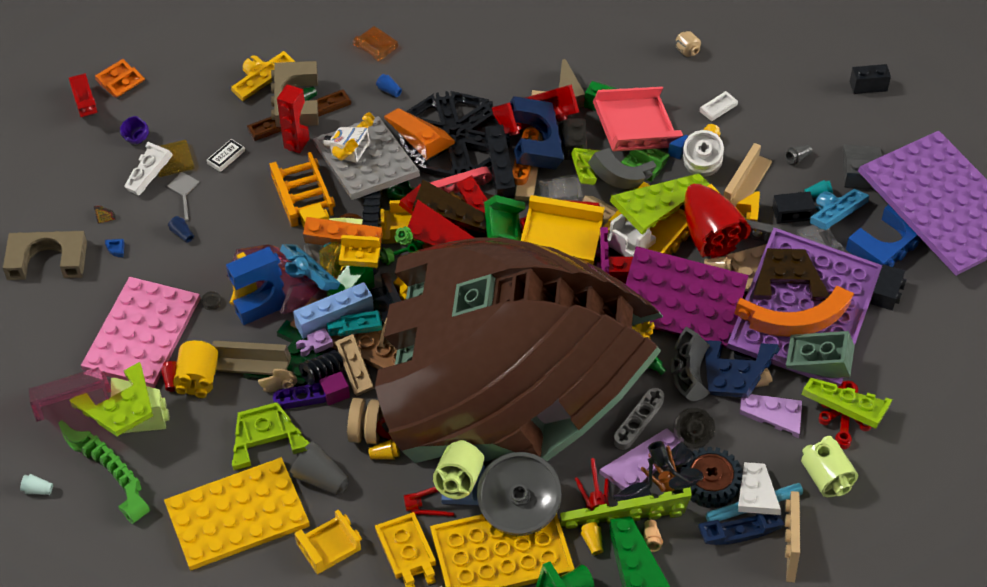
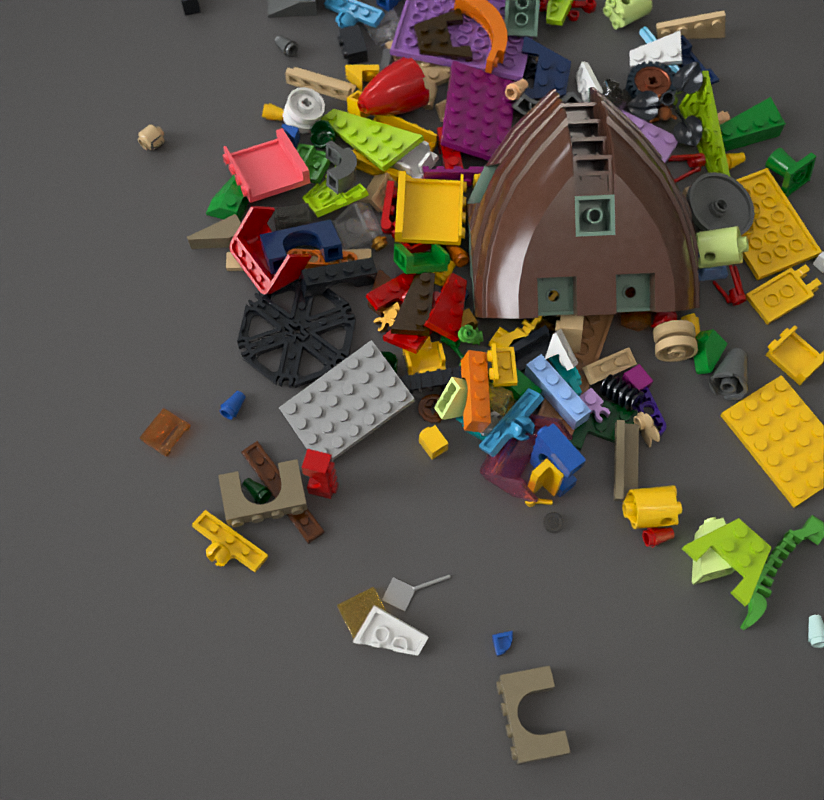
camera: 100 degrees left, 15 degrees up
(67, 388) = (726, 616): clear pink panel -> none
(83, 95) = (290, 743): red arch -> none
(103, 214) = (458, 670): clear smoke tile -> none
(119, 78) = (246, 712): orange slope -> none
(134, 130) = (335, 664): dark purple hair -> none
(141, 329) = (607, 583): bright pink plate -> none
(180, 228) = (466, 578): dark blue cone -> none
(225, 155) = (353, 556): tile -> none
(263, 426) = (693, 436): lime wing -> none
(290, 199) = (394, 481): light orange fence -> none
(350, 142) = (341, 413): torso -> none
(352, 454) = (709, 350): none -> green slope
(367, 310) = (560, 346): none -> white slope
(420, 134) = (307, 354): orange wedge -> none
(481, 175) = (363, 316): coral beam -> none
(674, 170) = (322, 133): none -> dark green hair
(709, 333) = (515, 90): none -> light nougat cone
(713, 407) = (586, 79): none -> white wing
(718, 106) = (232, 109): white plate -> none
(779, 412) = (574, 47): lavender wing -> none
(819, 188) = (328, 26): teal cone -> none

